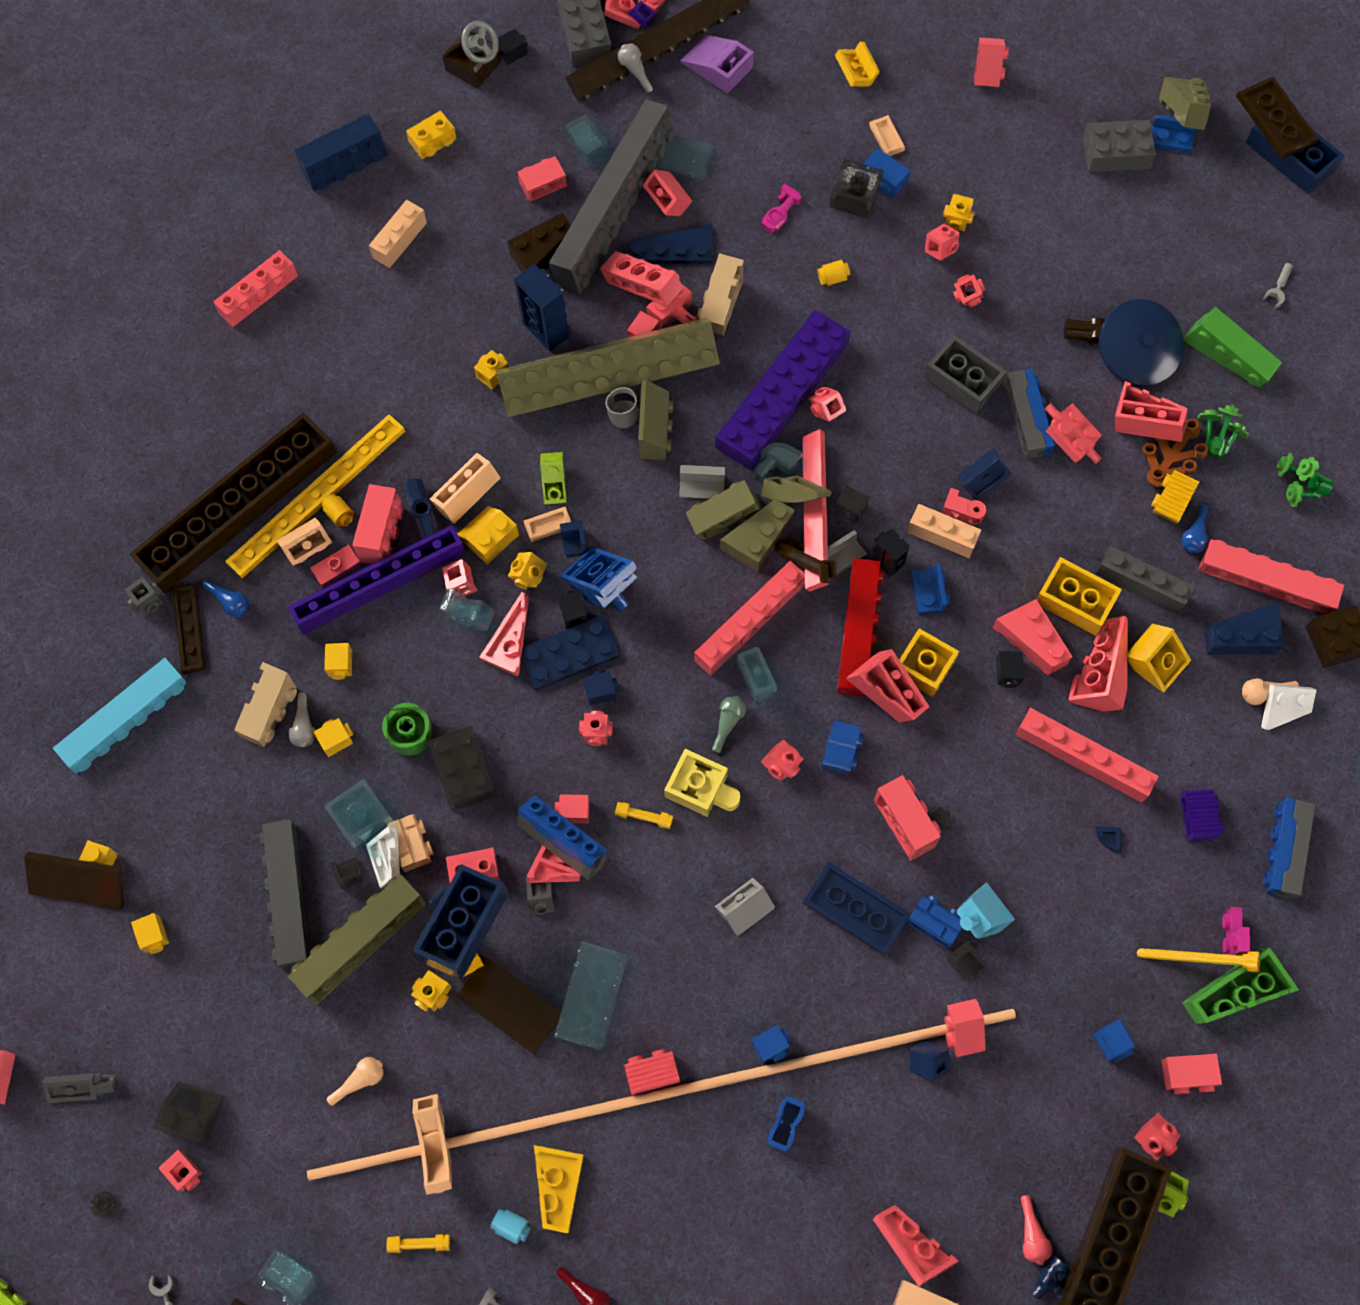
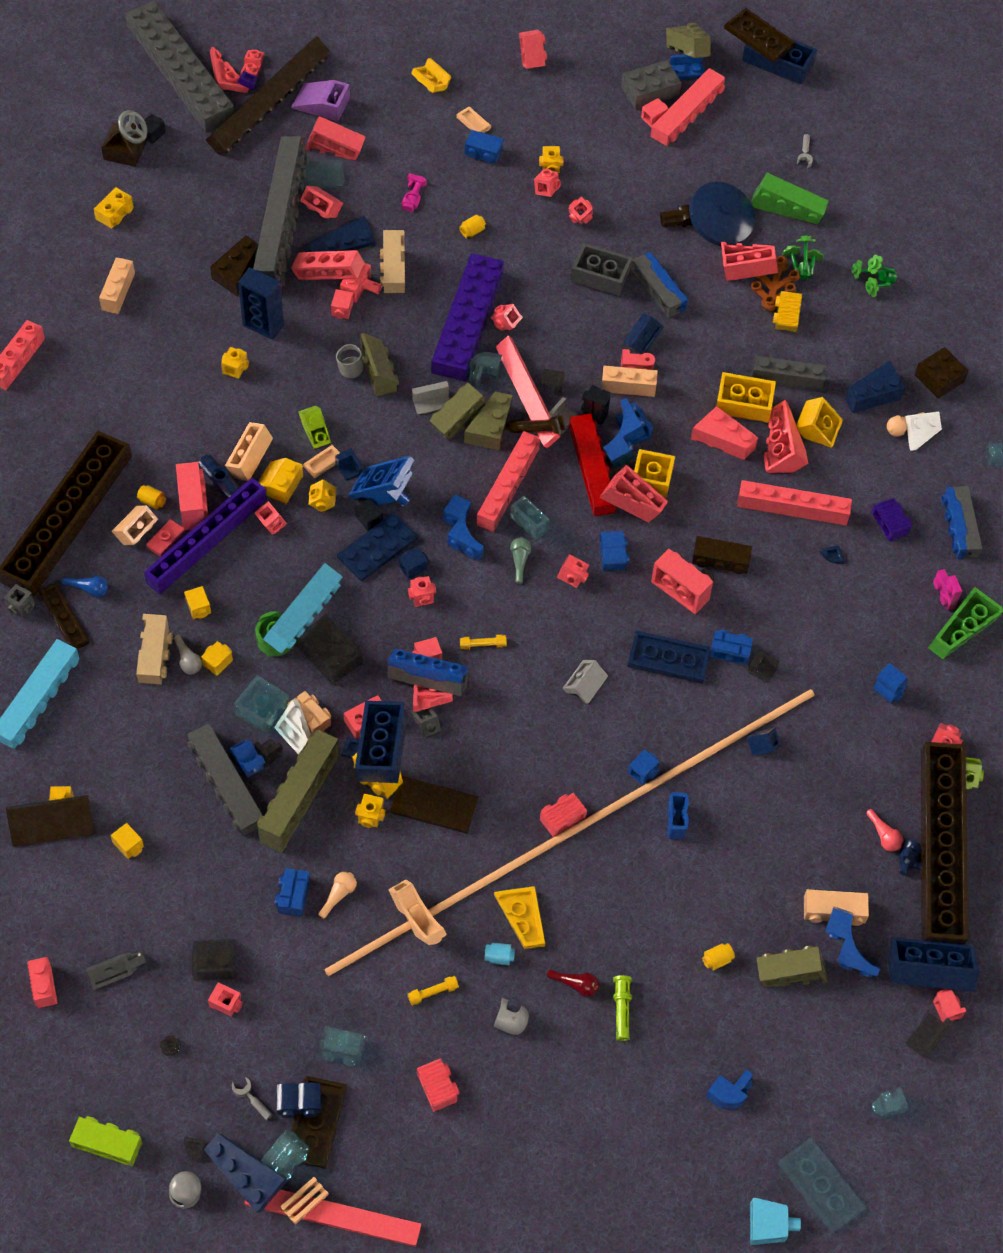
camera: 25 degrees left, 10 degrees down
(307, 1062) = (293, 892): none -> blue brick
(311, 499) = (127, 493): yellow plate -> none
(318, 875) = (247, 758): none -> blue brick
(341, 152) = (46, 237): dark blue brick -> none
(445, 711) = (302, 608): none -> medium azure brick
(465, 612) = (287, 540): clear light blue brick -> none
(507, 643) = (327, 548): coral wing -> none
(542, 178) = (217, 217): coral brick -> none
(586, 139) = (241, 180): clear light blue brick -> none
(591, 996) = (494, 778): clear light blue tile -> none
(607, 367) = (326, 335): olive brick -> none
(630, 57) = (254, 110): light grey piece -> none
(675, 640) = (459, 537): none -> blue arch
(700, 785) = (522, 599): light yellow brick -> none
(713, 116) = (335, 139): none -> coral wedge
(792, 489) = (506, 381): olive slope -> none
(856, 188) = (466, 162): clear smoke slope -> none
(899, 617) = (620, 448): none -> blue arch
(917, 1252) = (807, 871): coral wing -> none
(965, 1028) = (782, 707): coral brick -> none
(970, 796) = (721, 555): none -> dark brown brick
(984, 913) = (764, 627): medium azure torso -> none
(1010, 668) = (715, 461): black brick -> none
(1073, 433) = (697, 288): coral plate -> none
(1109, 184) = (653, 111): none -> coral brick
(1153, 188) = (688, 107): none -> coral brick
(1191, 1072) = (953, 690): coral brick -> none
(1195, 538) = (813, 336): blue piece -> none
(1248, 961) = (963, 598): yellow piece -> none
(1271, 577) = (876, 347): coral brick -> none

